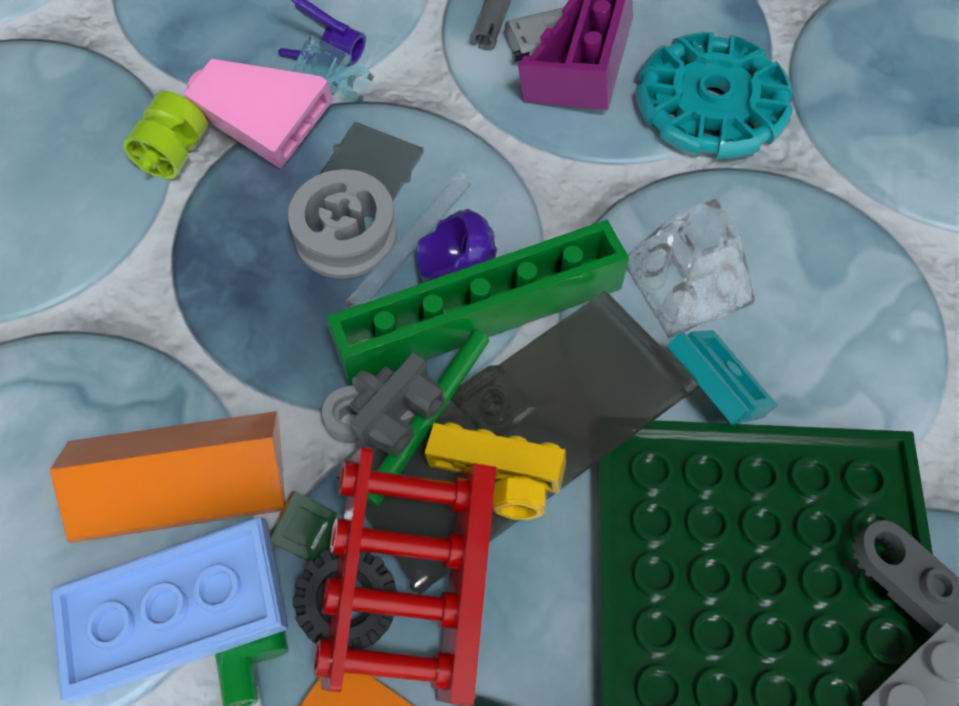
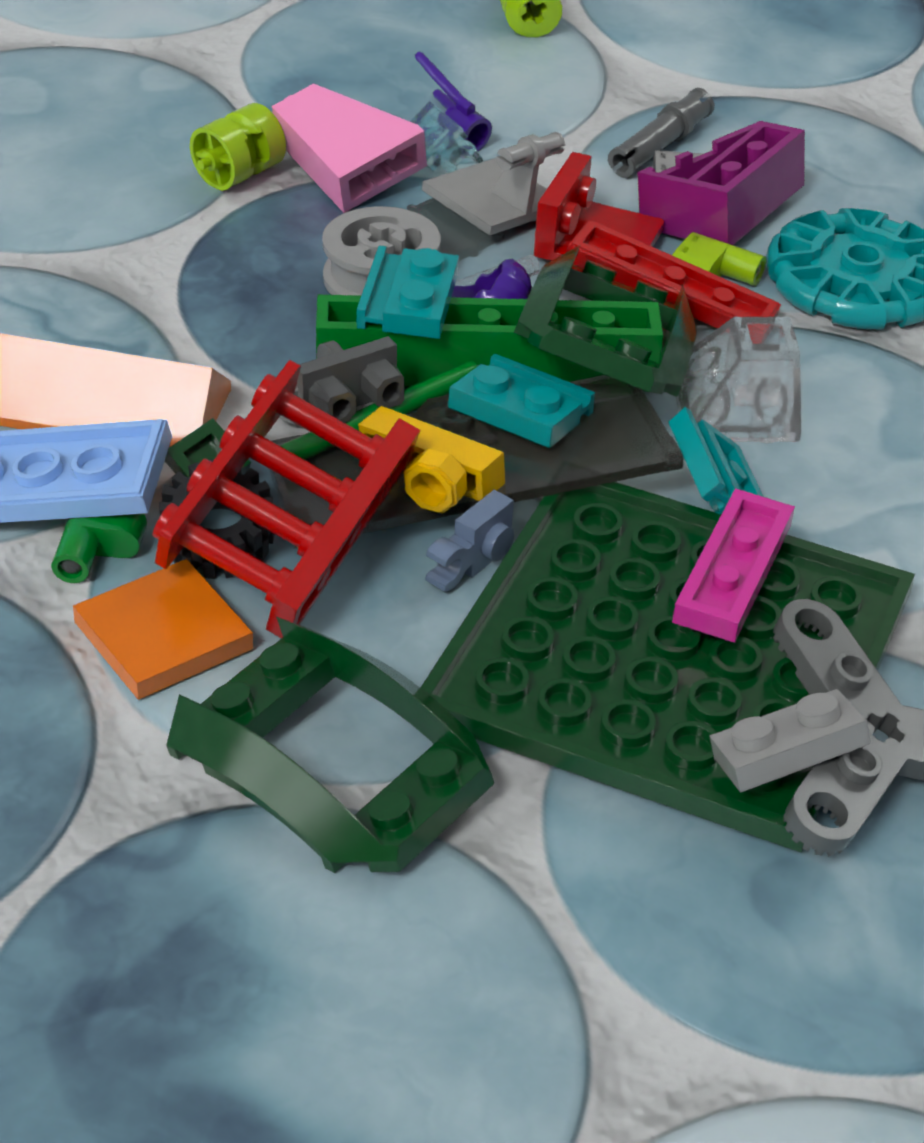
camera: 20 degrees right, 20 degrees down
(403, 112) = (499, 190): none -> light grey plate
(406, 290) = (409, 291): none -> teal plate
(500, 128) = (569, 206): none -> red bracket
(542, 368) = (521, 400): none -> teal plate
(571, 525) = (479, 538): none -> sand blue plate
(572, 304) = (576, 339): none -> dark green wedge
(585, 166) = (709, 295): none -> red tile
(597, 124) = (722, 258): none -> lime piece
(792, 495) = (733, 565): none -> dark pink plate

